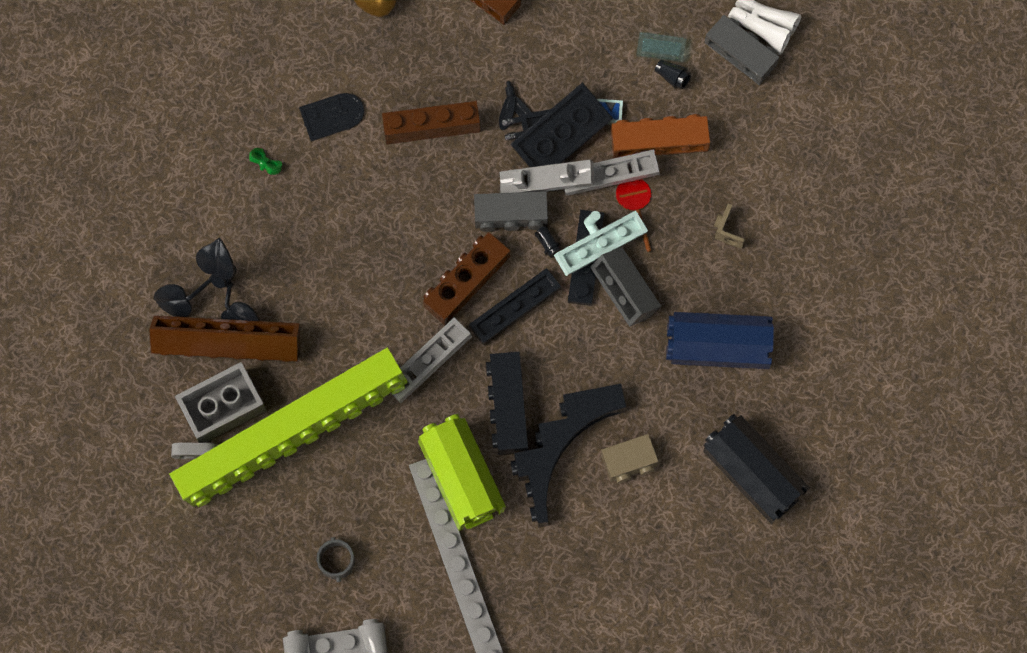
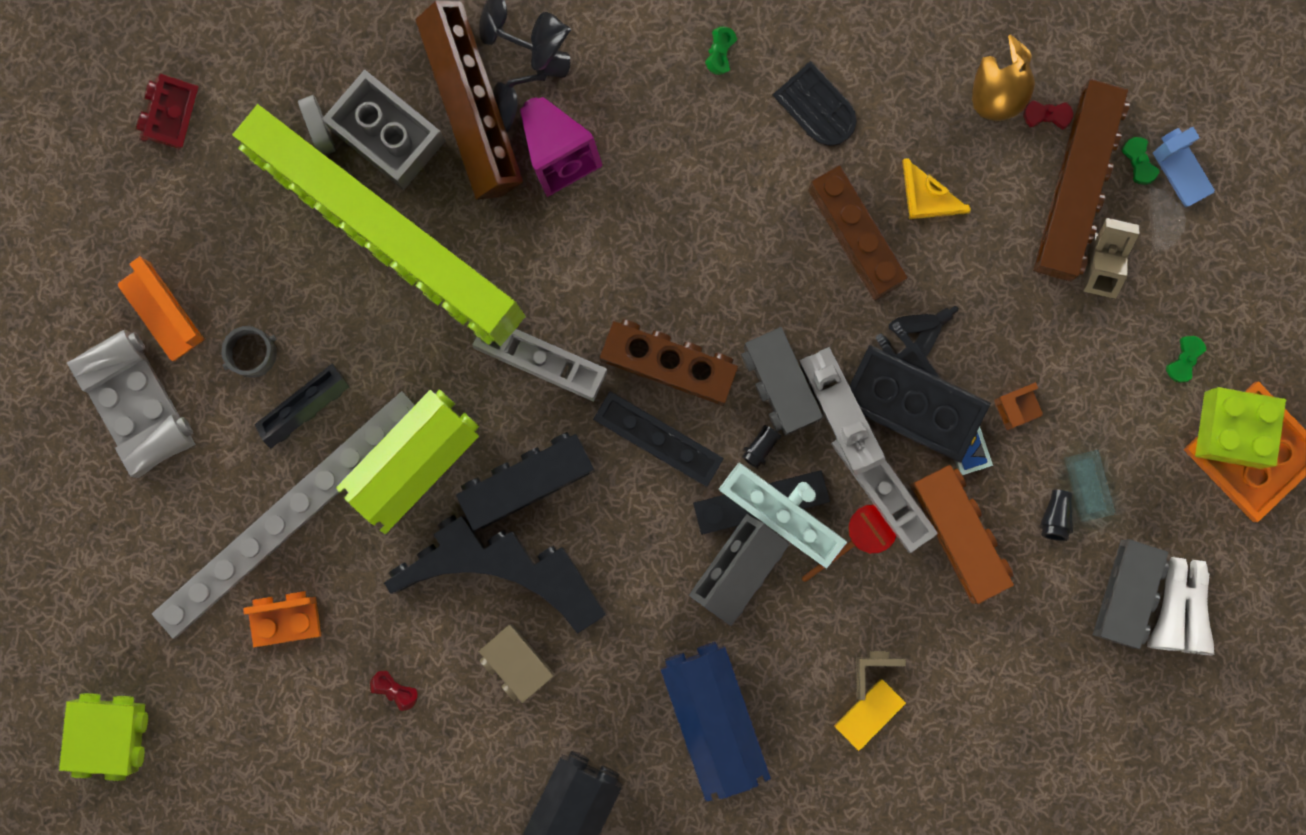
camera: 70 degrees right, 10 degrees up
(135, 553) = (167, 111): none -> dark red bracket
(277, 612) = (159, 310): none -> orange panel
(283, 291) = (557, 145): none -> magenta slope
(389, 537) = (301, 406): none -> black plate
(424, 70) = (927, 196): none -> yellow tile
(535, 608) = (284, 620): none -> orange bracket
(590, 69) = (1018, 406): none -> dark orange panel
(622, 544) = (384, 684): none -> dark red piece
(756, 244) = (869, 714): none -> yellow tile

